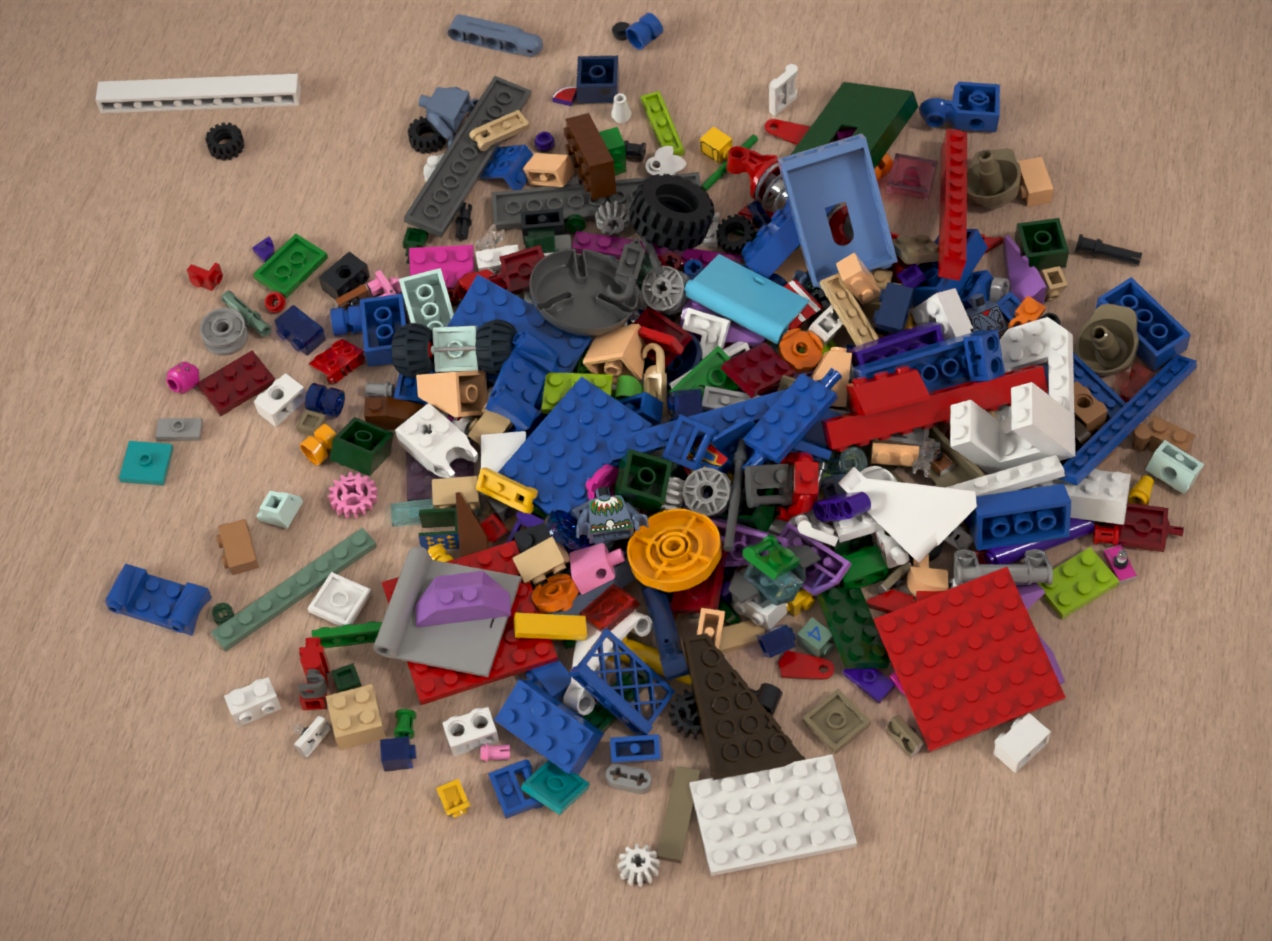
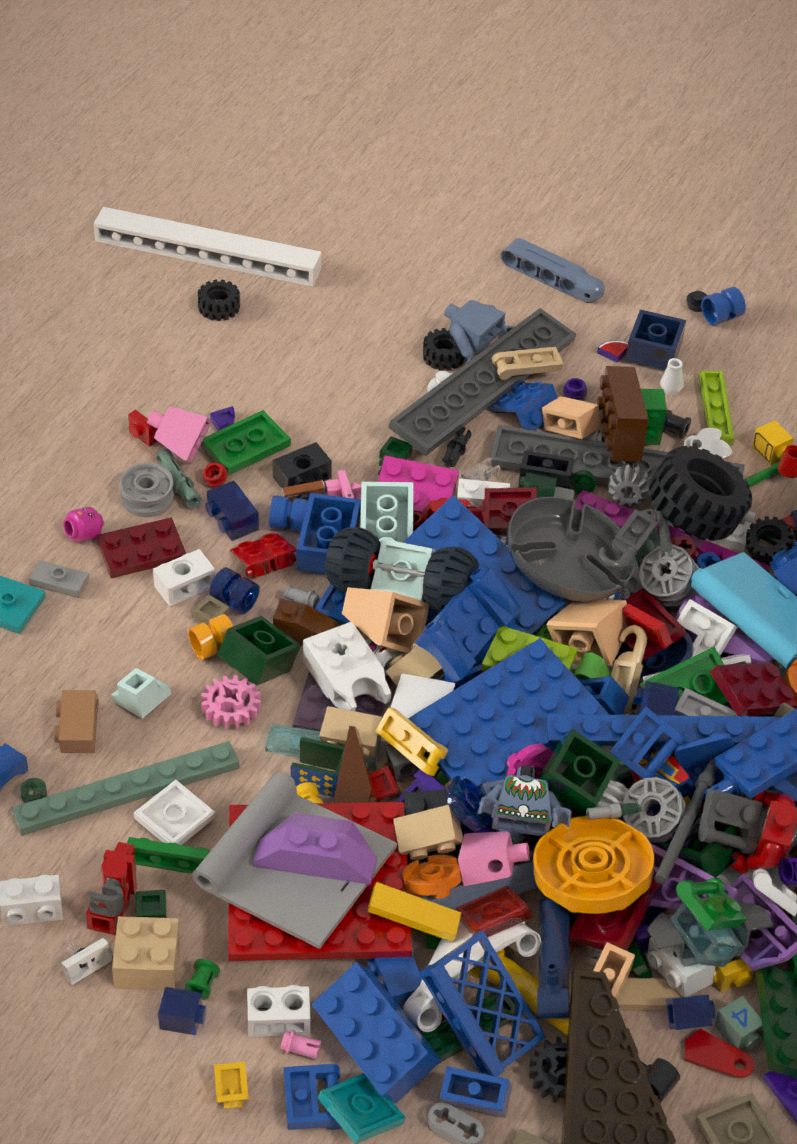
camera: 10 degrees right, 10 degrees down
(234, 273) = (180, 431): none -> bright pink torso
(678, 503) = (613, 811): none -> light grey piece

